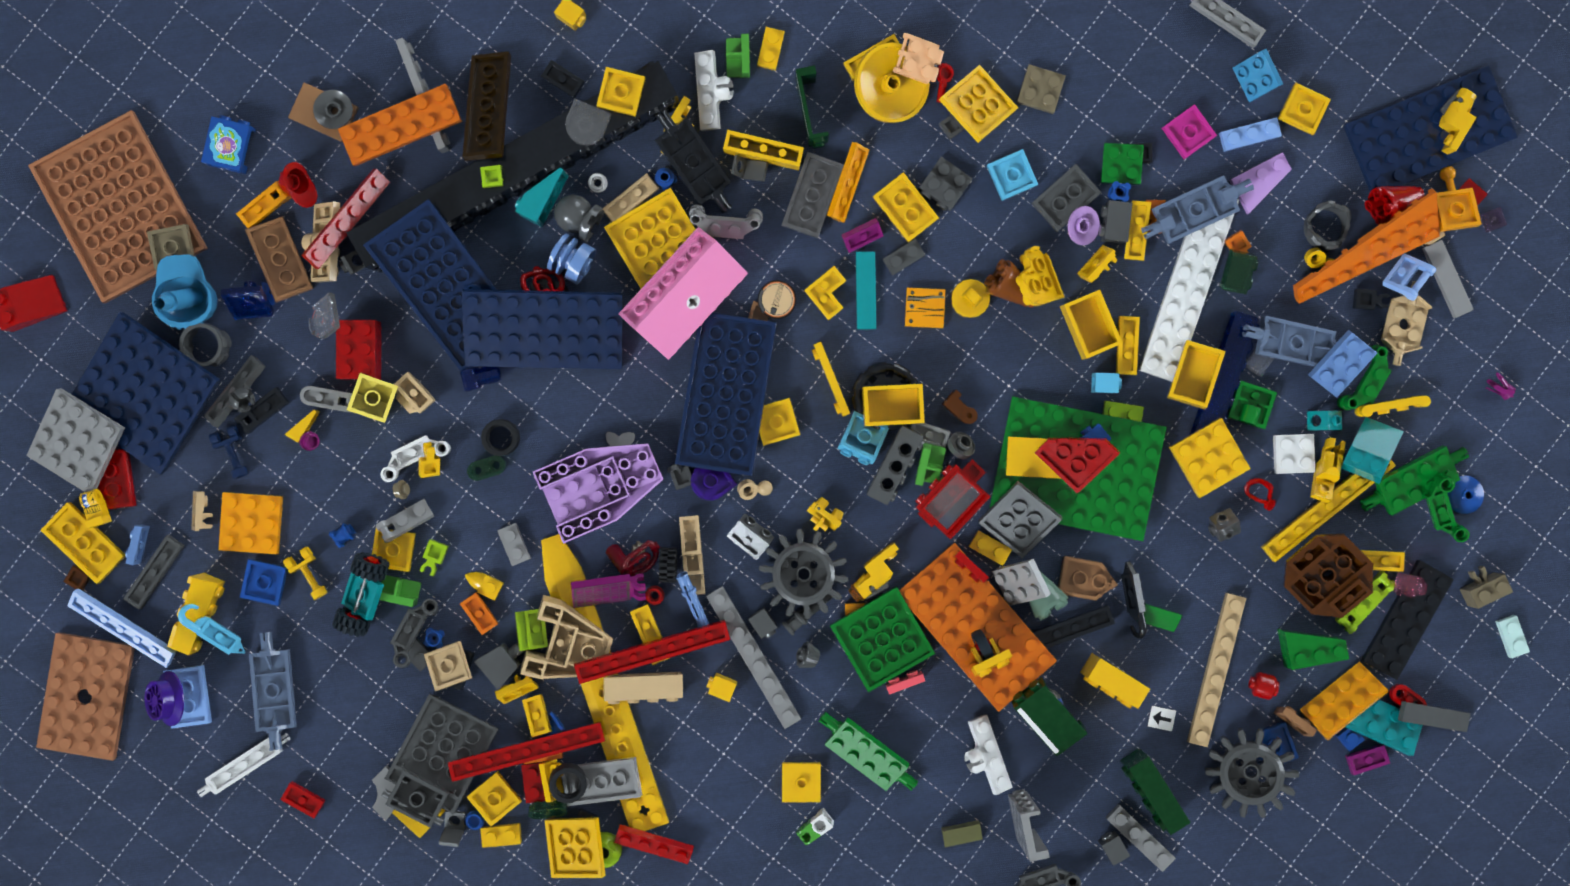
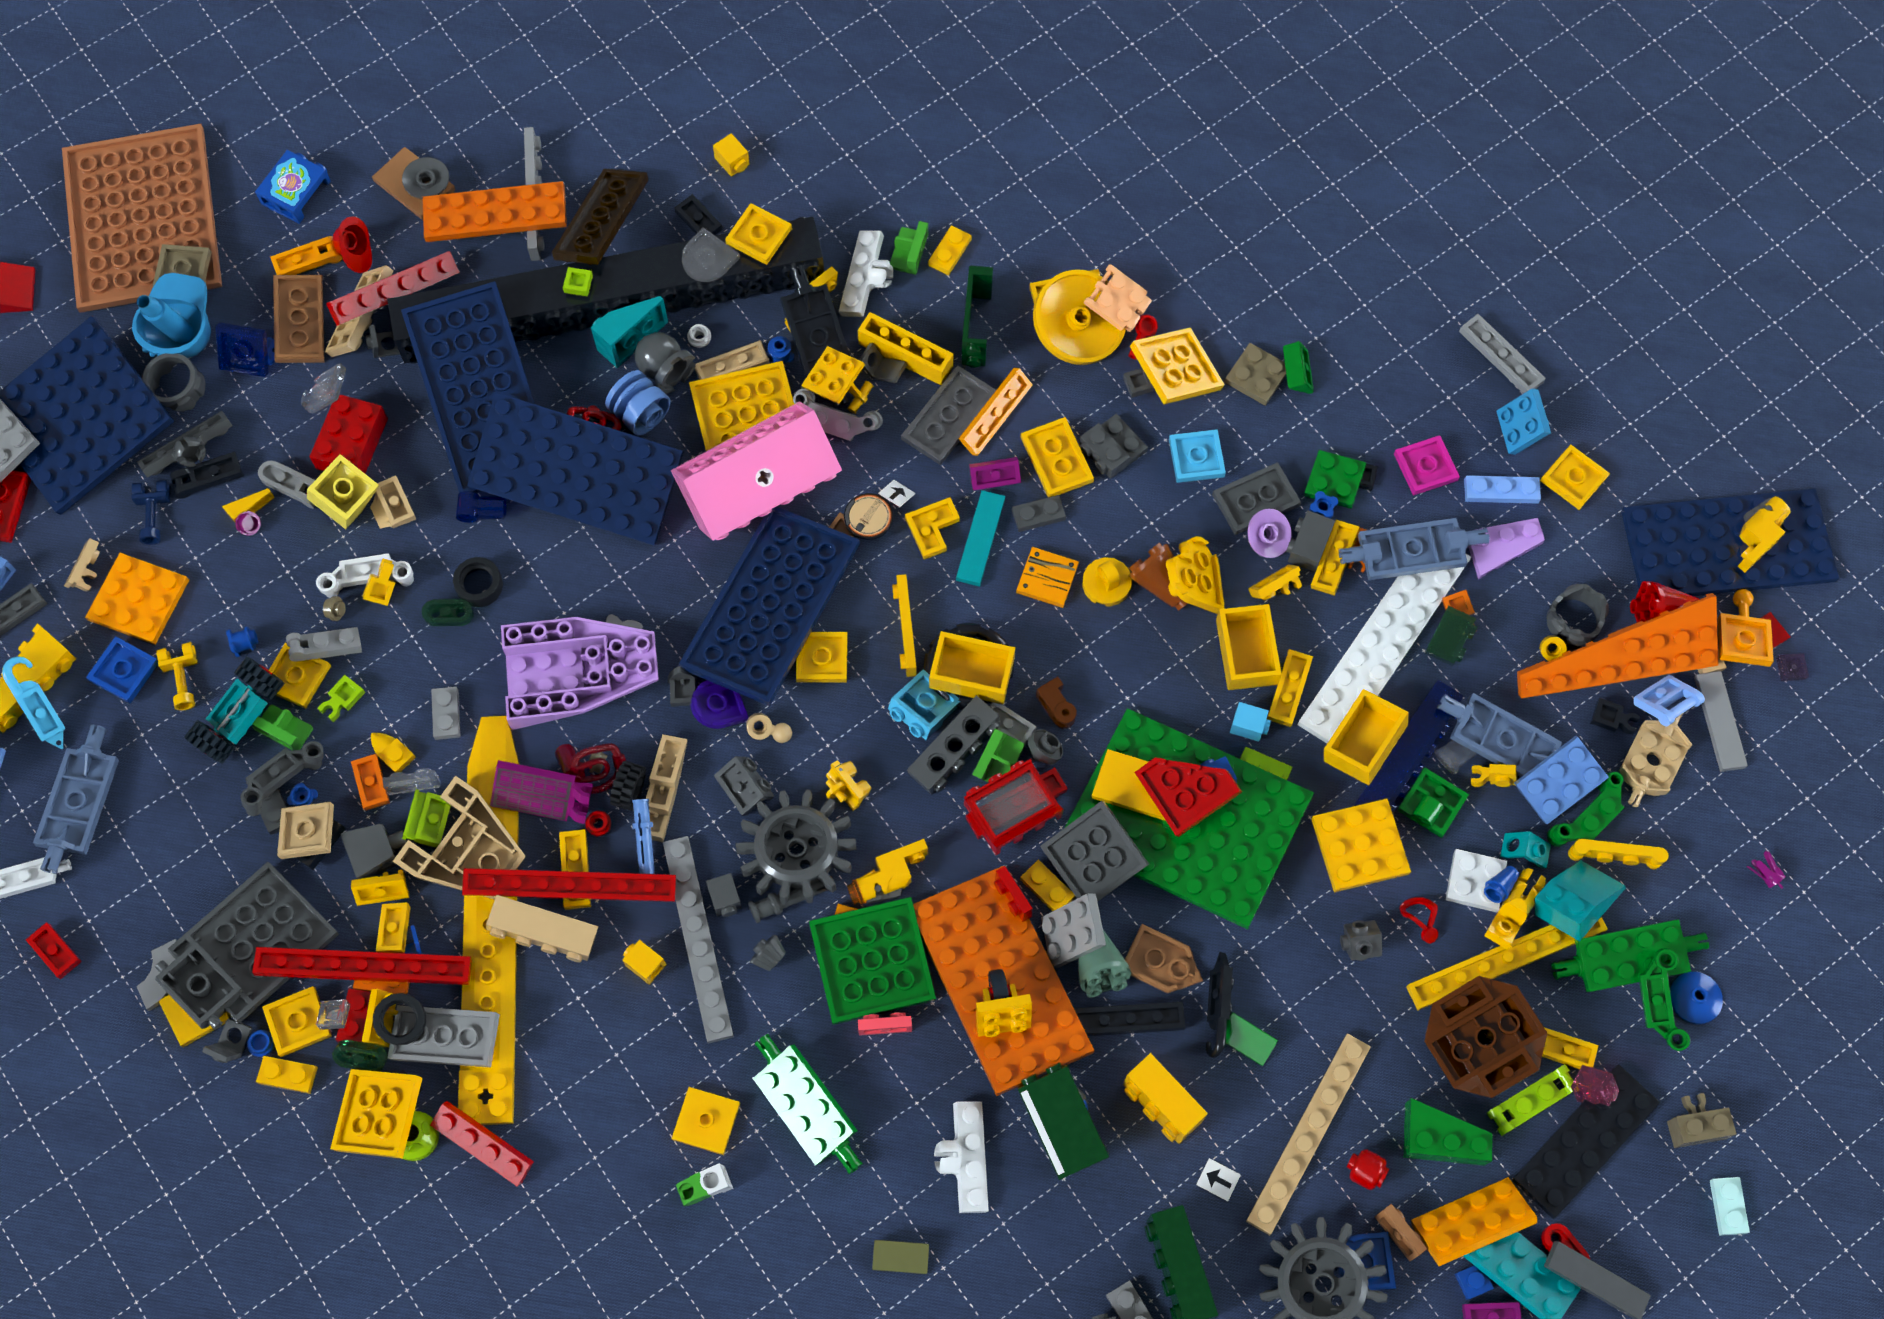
camera: 20 degrees right, 20 degrees down
(516, 600) = (402, 783): none -> clear plate
(519, 790) = (333, 1014): none -> clear plate
(717, 193) = (834, 377): none -> yellow plate
(792, 273) = (896, 493): none -> white sticker
(1022, 809) = (990, 1279): light grey panel -> none
(1071, 76) = (1298, 367): none -> green slope
(1297, 371) = (1497, 774): none -> yellow plate
(1315, 457) = (1501, 885): none -> blue cone

